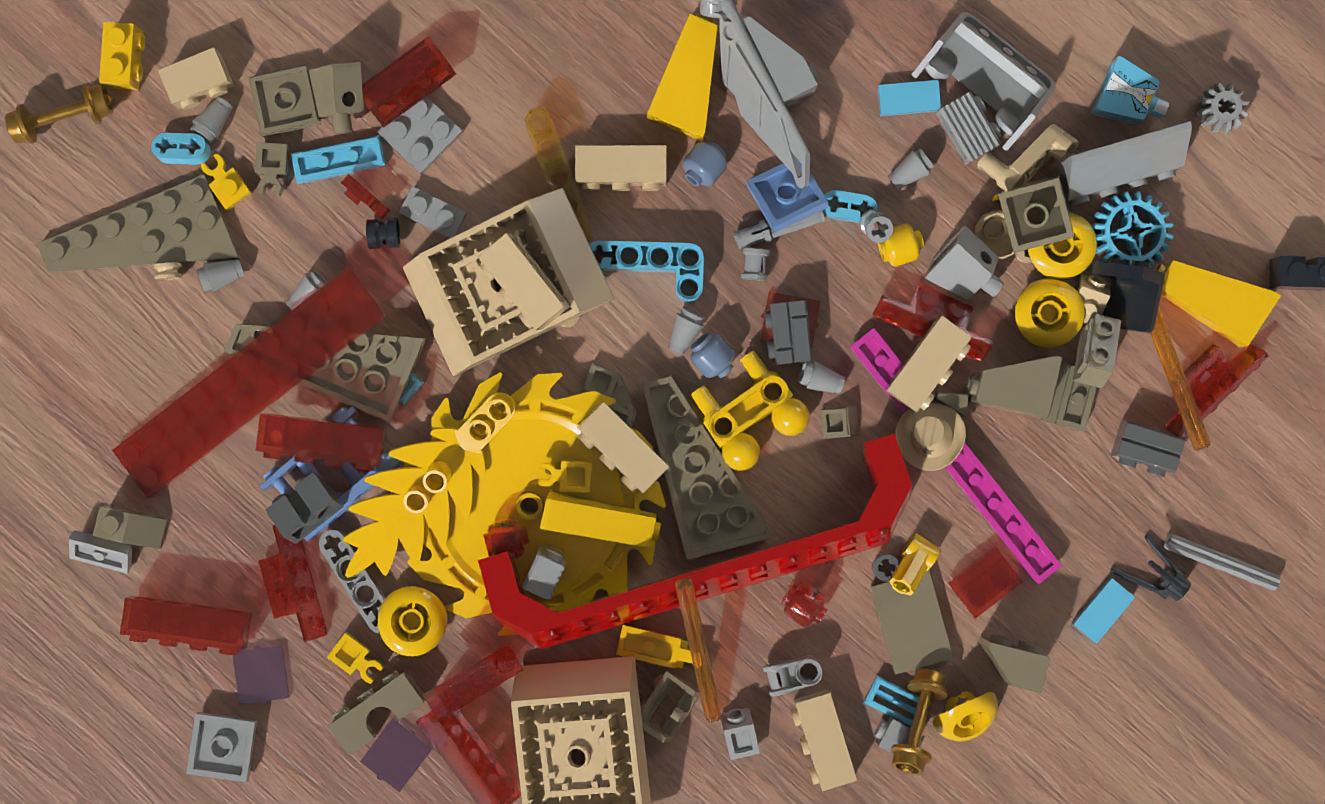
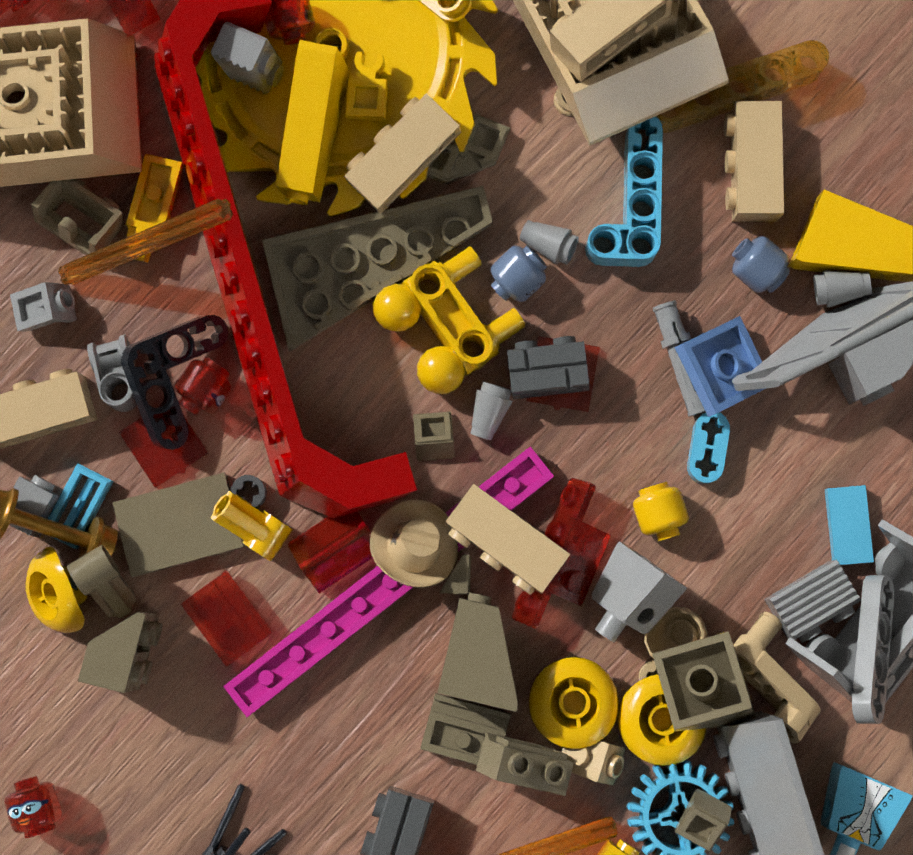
camera: 90 degrees right, 5 degrees down
(722, 101) = (840, 286): none -> light grey cone
(755, 264) = (634, 327): light grey bush -> none
(791, 639) = (157, 364): none -> black beam
(846, 635) = (162, 463): none -> clear red piece
(867, 226) = (675, 471): light grey bush -> none
(911, 169) = (757, 526): light grey cone -> none
(932, 502) = (332, 549): none -> clear red panel
(959, 679) = (100, 577): none -> dark tan piece
(1009, 83) = (873, 649): none -> light grey beam
(1103, 610) = (188, 773): medium azure tile -> none
(1131, 729) = (33, 807): none -> clear red head
(1133, 293) = (600, 812): black bracket -> none
(1138, 214) = (704, 820): none -> dark tan slope

